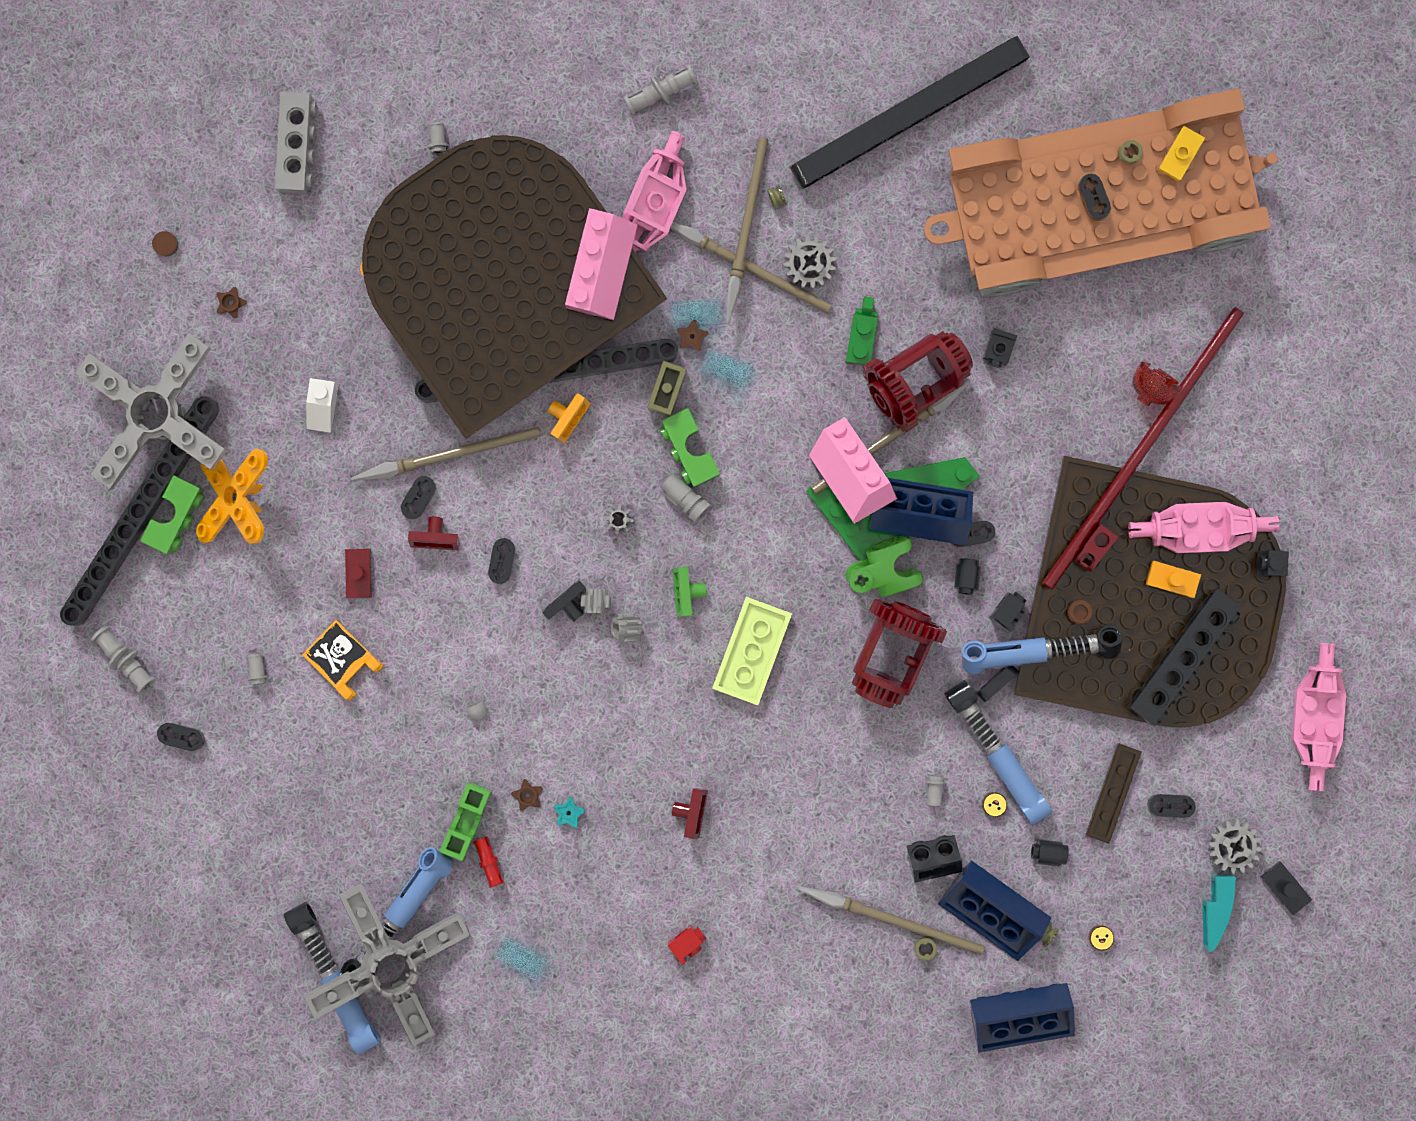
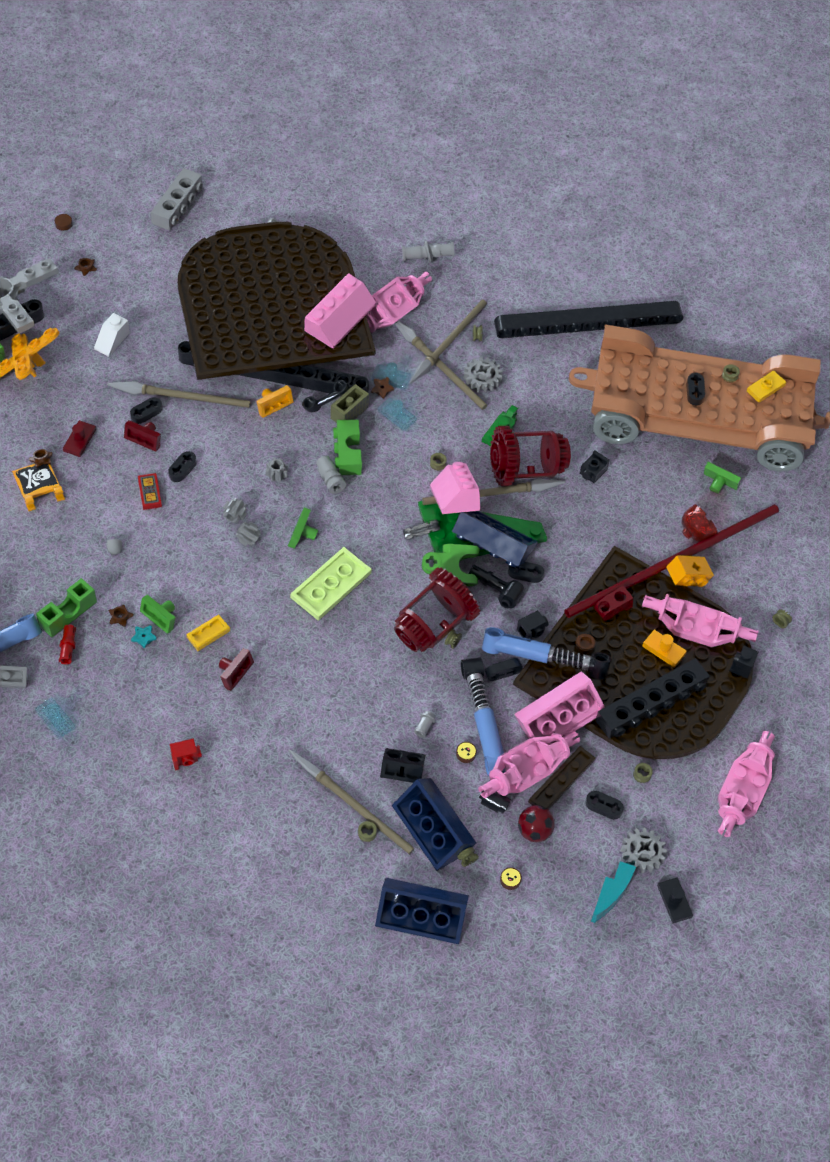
camera: 20 degrees right, 30 degrees down
(322, 617) = (41, 457): none -> reddish brown plate
(479, 612) = (149, 491): none -> tile
(567, 603) = (213, 504): black tile -> none
(573, 778) = (158, 613): none -> bright green tile
(618, 397) = (313, 405): none -> black bar
(640, 777) = (208, 632): none -> yellow plate
(801, 425) = (434, 465): none -> olive bush
(827, 531) = (421, 529): none -> black axle
(925, 670) = (452, 639): none -> olive bush
(931, 564) = (488, 578): none -> black pin
(1071, 800) = (528, 763): none -> bright pink plate
(1084, 718) = (561, 709): none -> bright pink slope
(1108, 868) = (536, 823): none -> dark red piece
(1159, 298) = (721, 477): none -> bright green tile
(1168, 459) = (690, 571): none -> light orange brick
(1202, 740) = (638, 776): none -> olive bush
(1294, 473) = (781, 618): none -> olive bush

